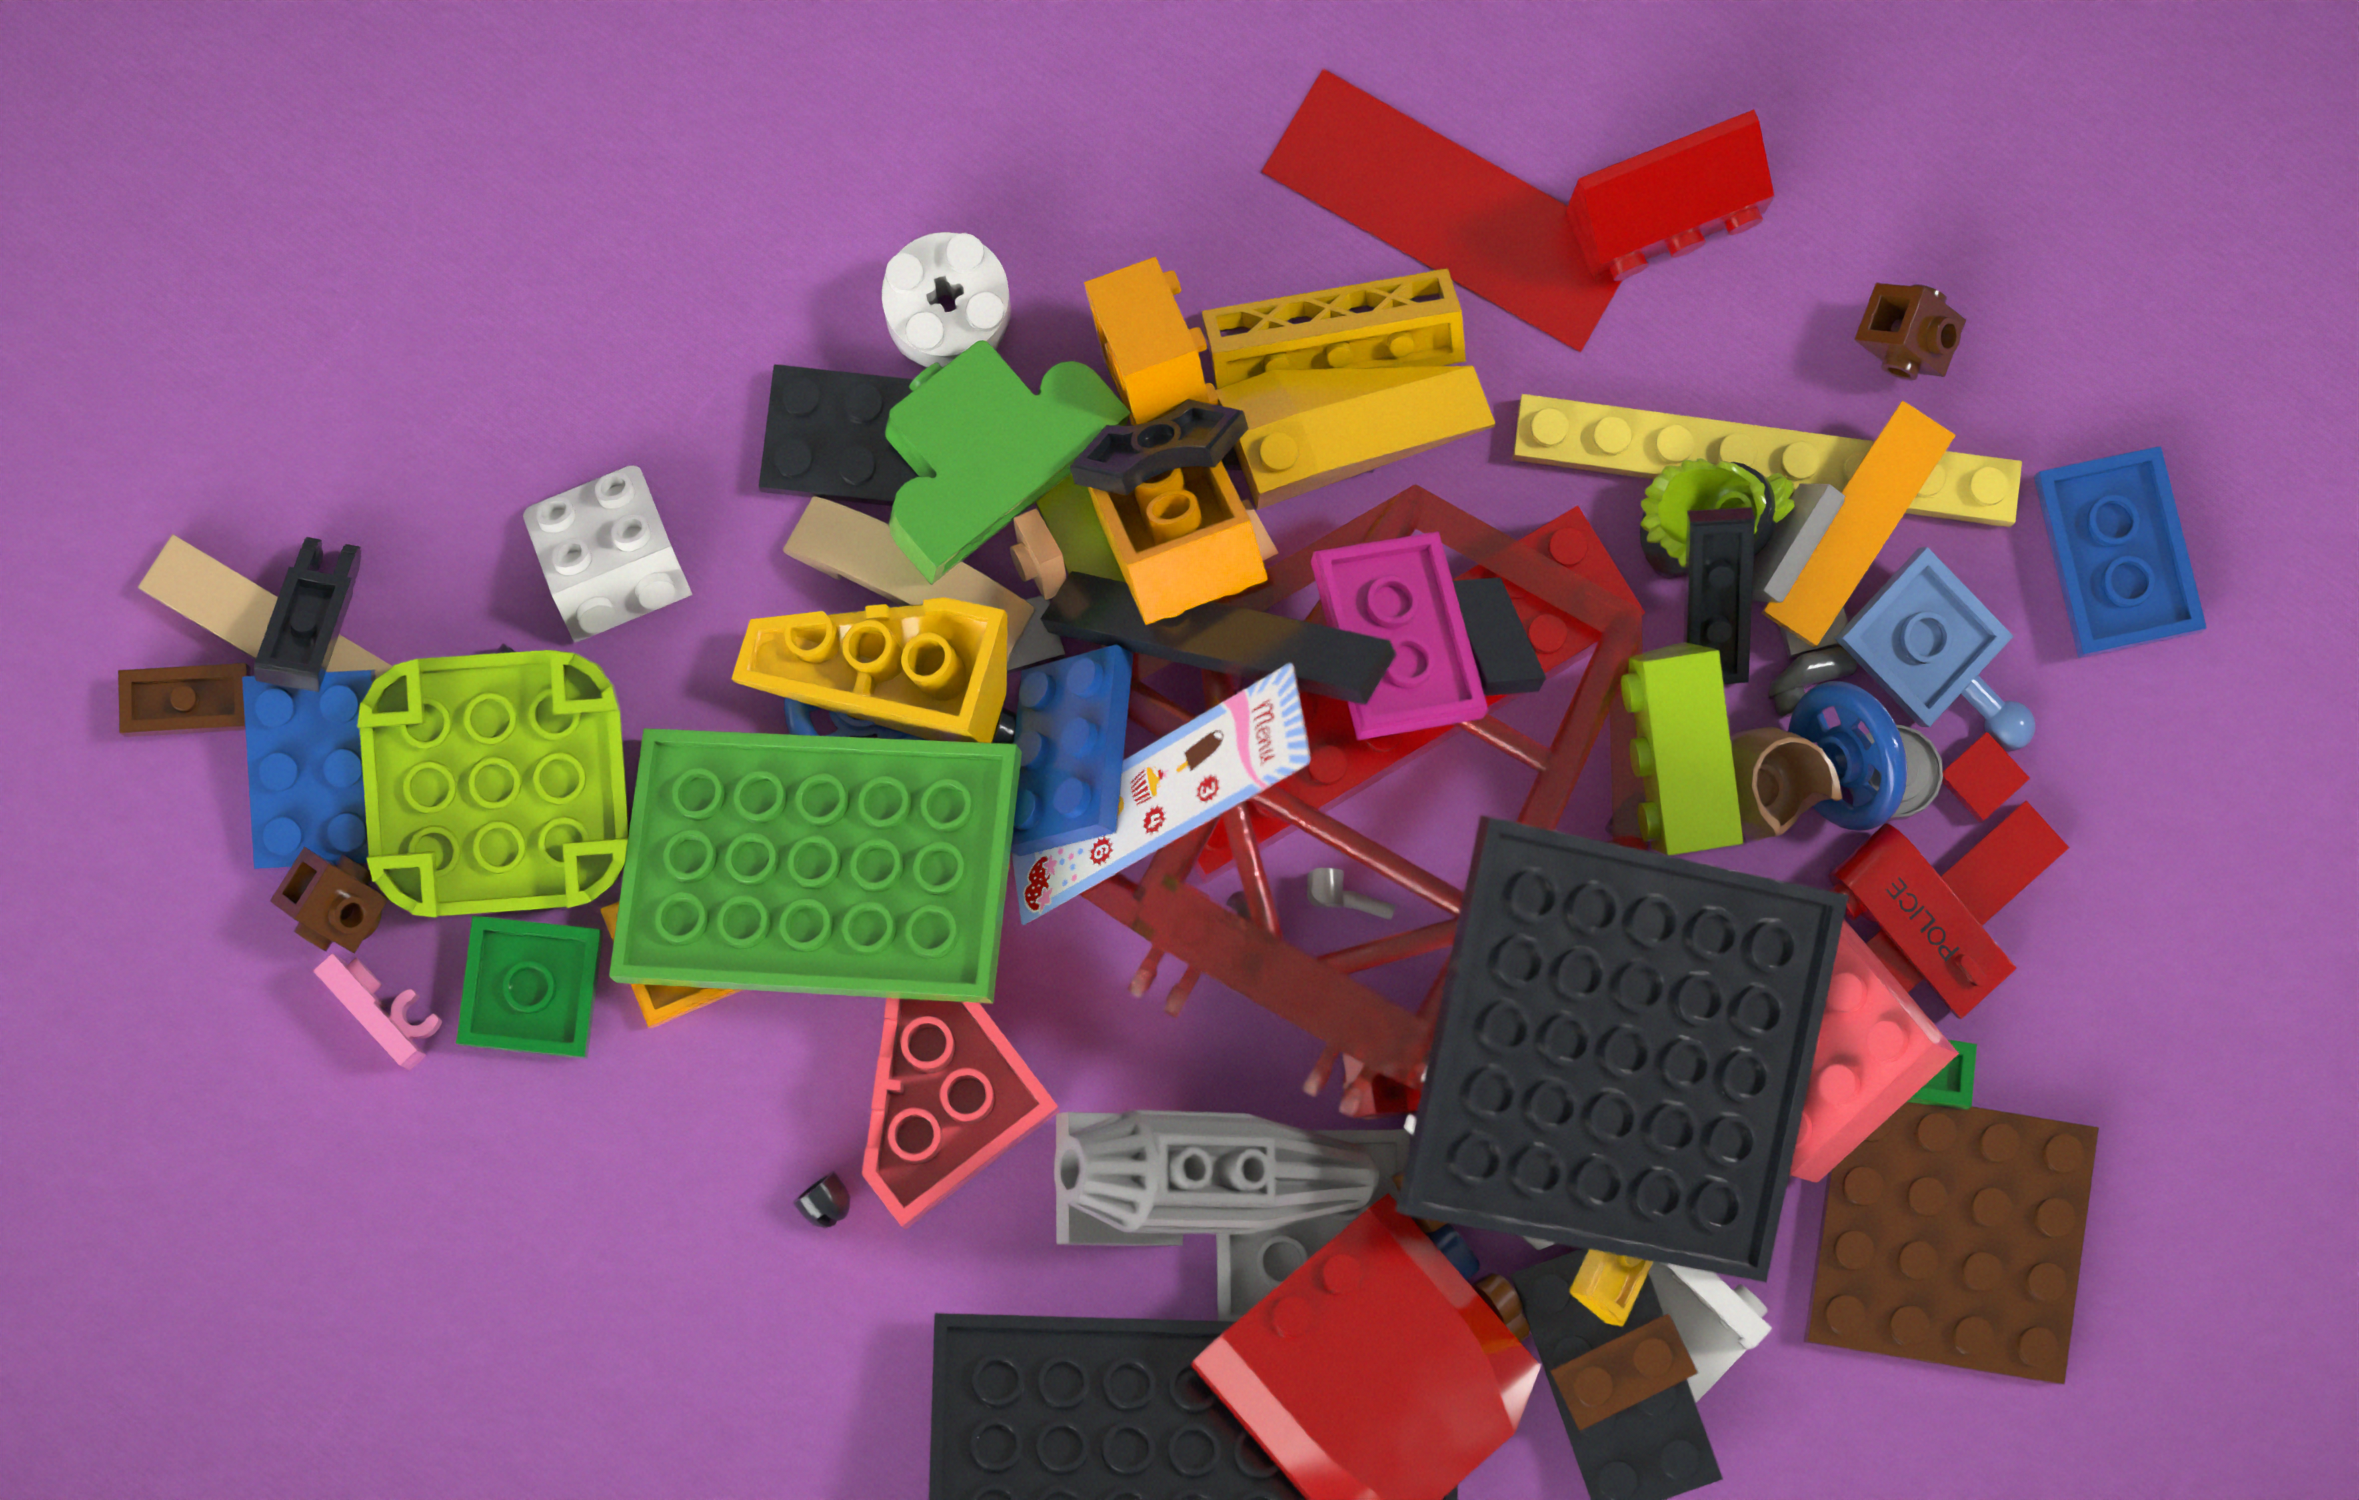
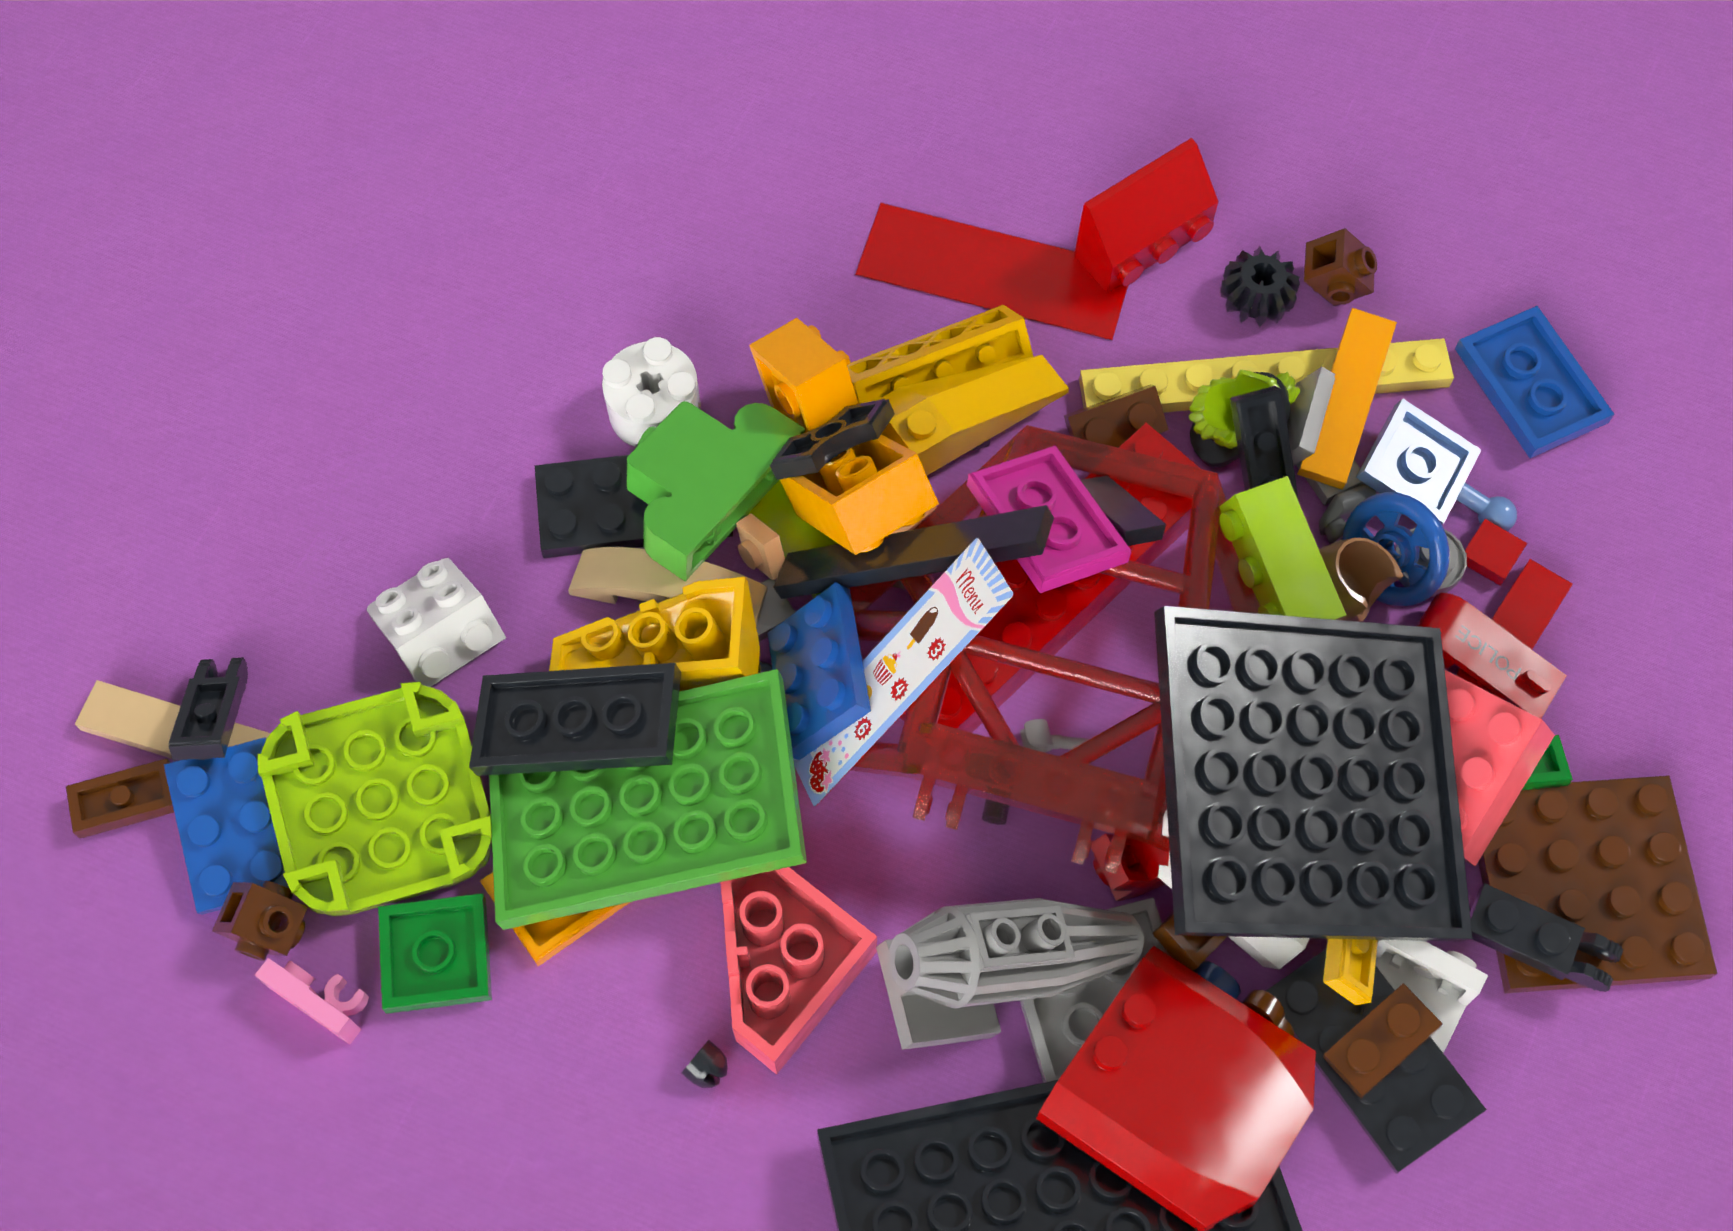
camera: 10 degrees left, 15 degrees down
(756, 745) = (576, 719): none -> black plate
(1545, 483) = (1118, 417): none -> reddish brown plate
(1786, 348) = (1259, 286): none -> black gear
(1854, 1291) = (1540, 938): none -> black hinge

